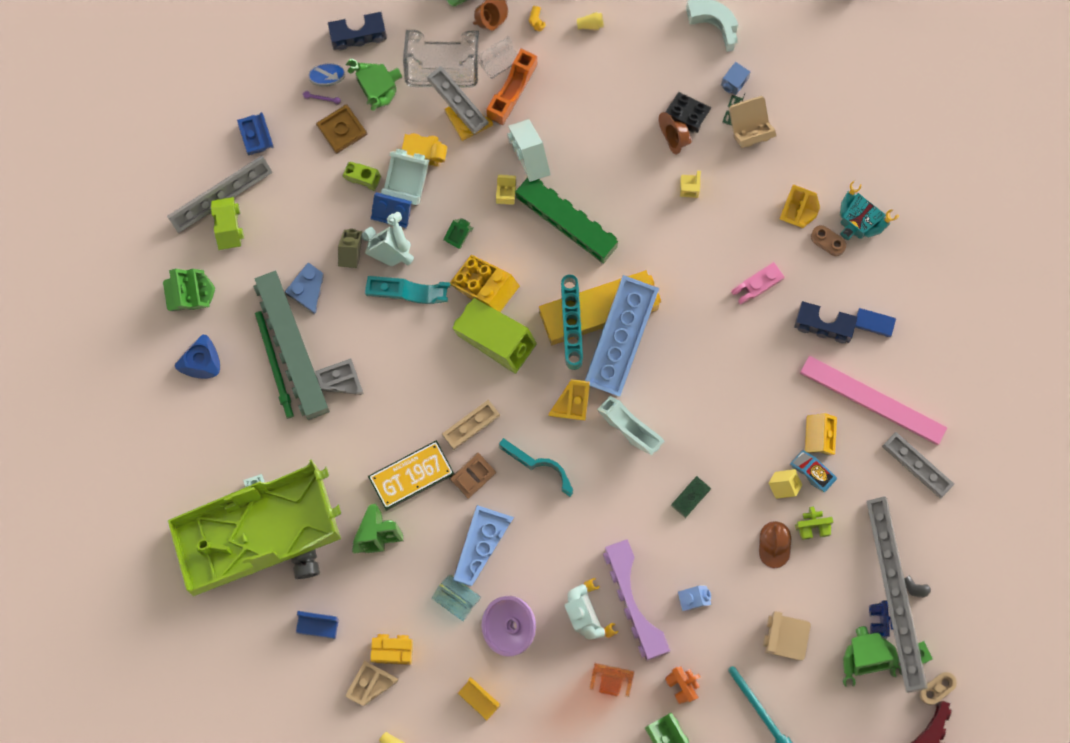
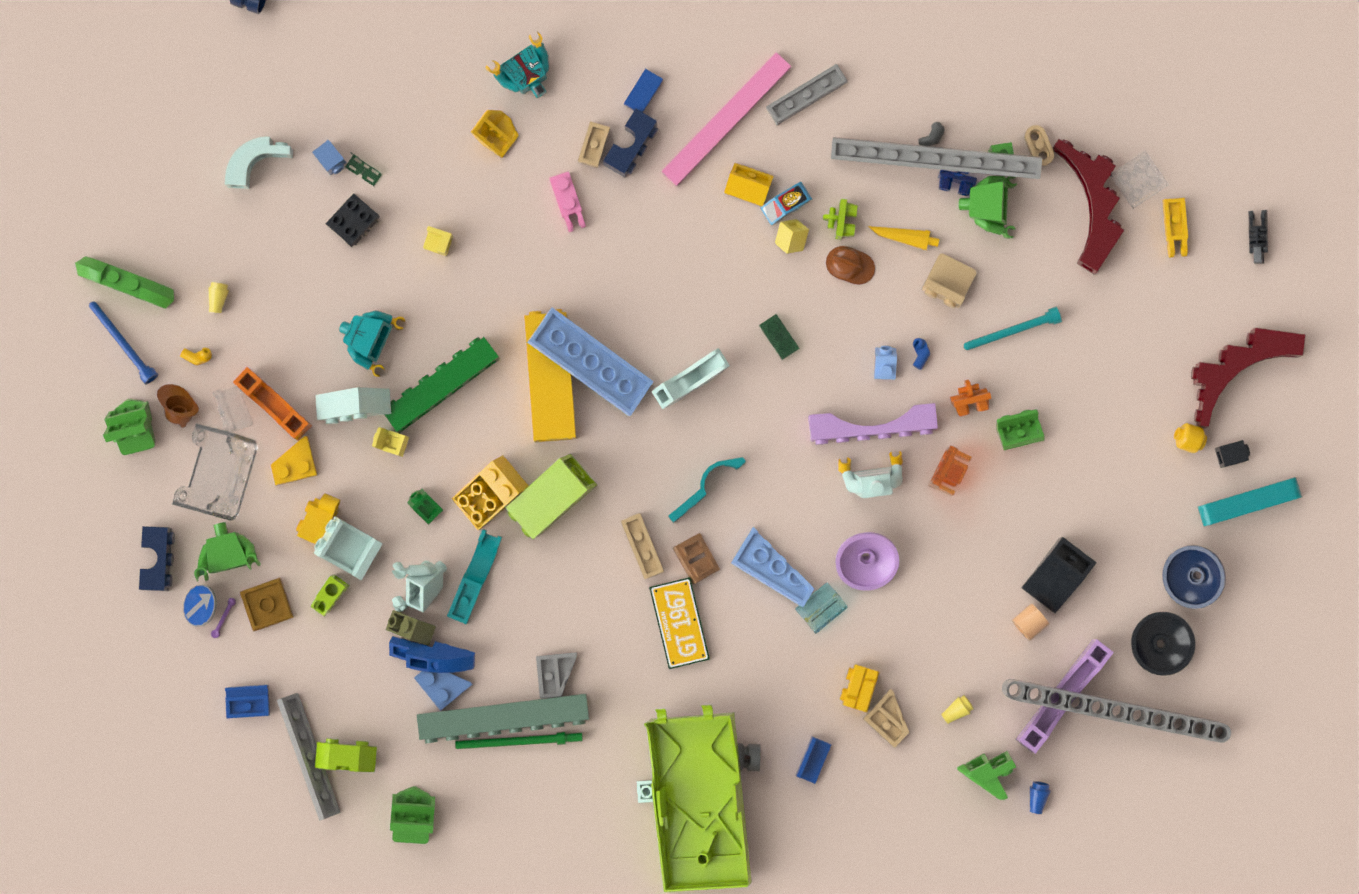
camera: 75 degrees left, 10 degrees up
(200, 359) = (492, 820): blue hat -> none
(328, 275) = (437, 659): none -> blue slope
(375, 533) = (733, 678): bright green piece -> none
(385, 205) = (378, 572): blue plate -> none
(457, 100) = (273, 468): light grey tile -> none
(479, 699) = (931, 611): yellow panel -> none
(571, 313) = (555, 403): teal beam -> none
(572, 401) = (646, 432): yellow wing -> none
(590, 147) = (367, 337): none -> teal torso
(674, 132) = (375, 240): dark orange piece -> none
(715, 629) = (922, 351): none -> blue arm
(751, 122) = (387, 155): tan bracket -> none
(814, 292) = (594, 144): none -> tan plate
(817, 596) = (915, 238): none -> yellow bar
(827, 241) = (540, 112): medium nougat plate -> none

